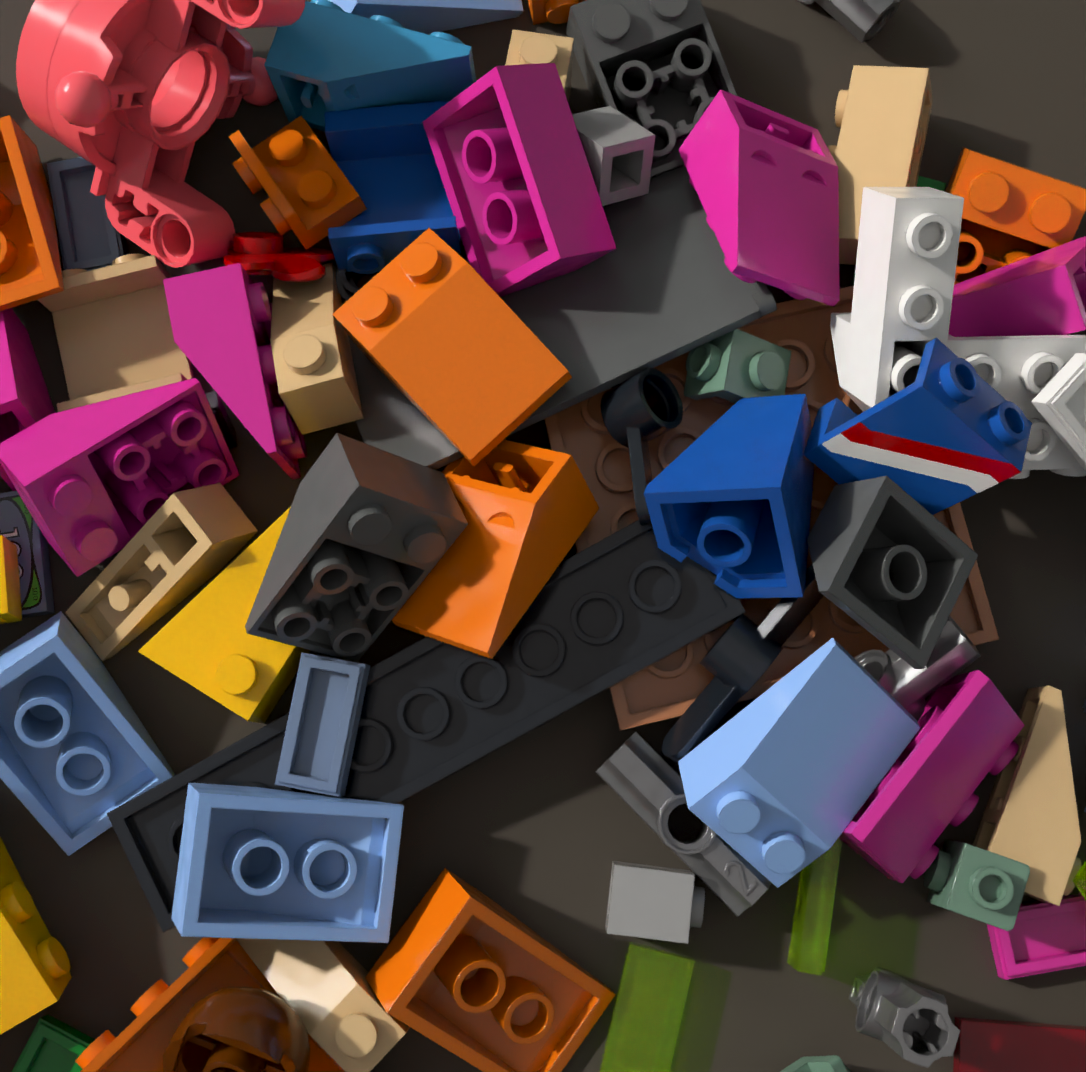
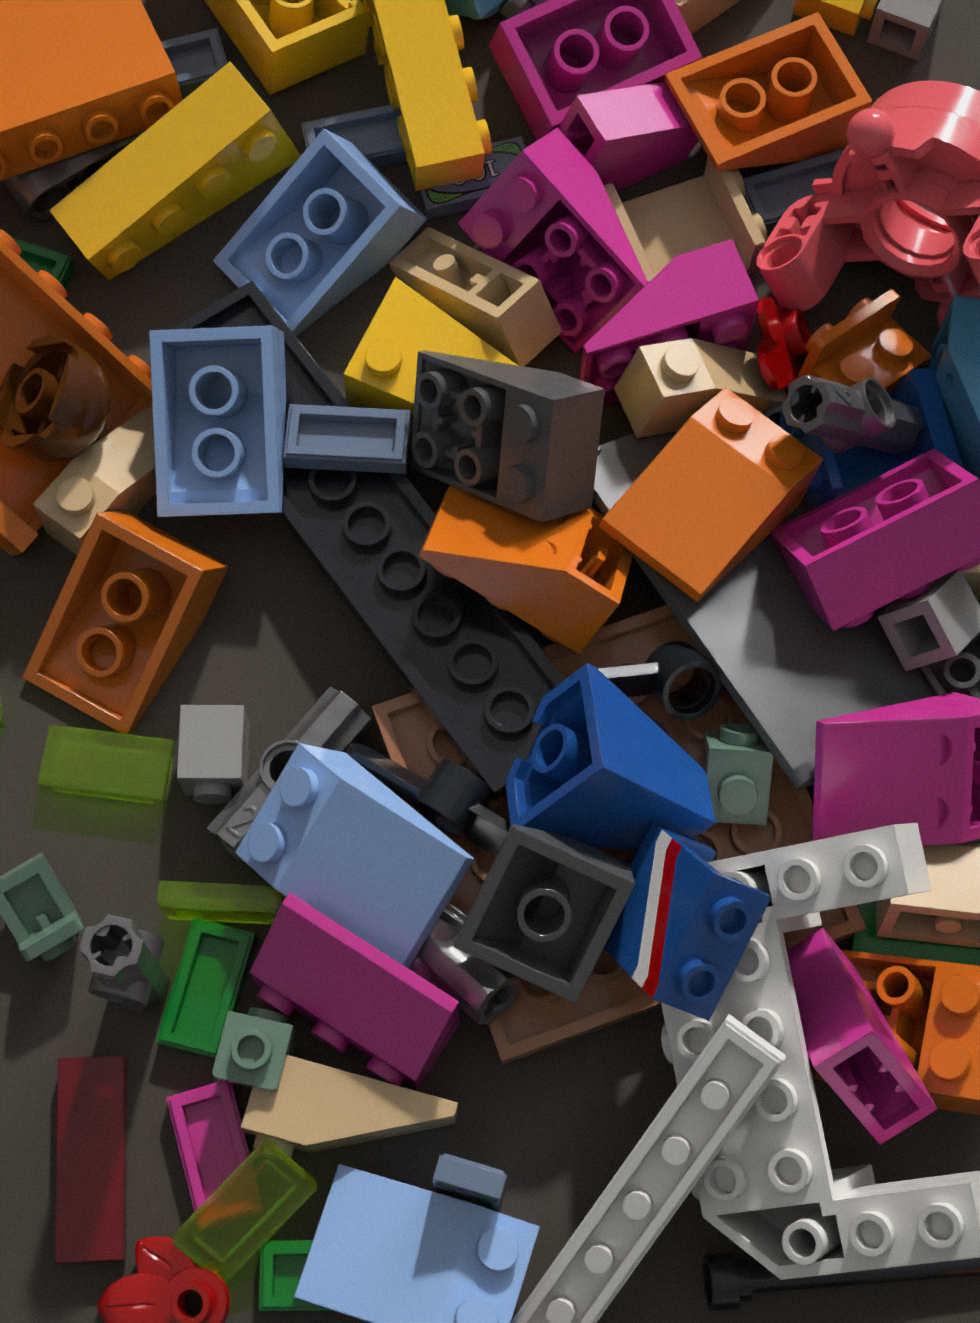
camera: 75 degrees right, 10 degrees down
(384, 192) = (852, 415): none -> flat silver piece
(896, 930) = (205, 987): none -> green tile

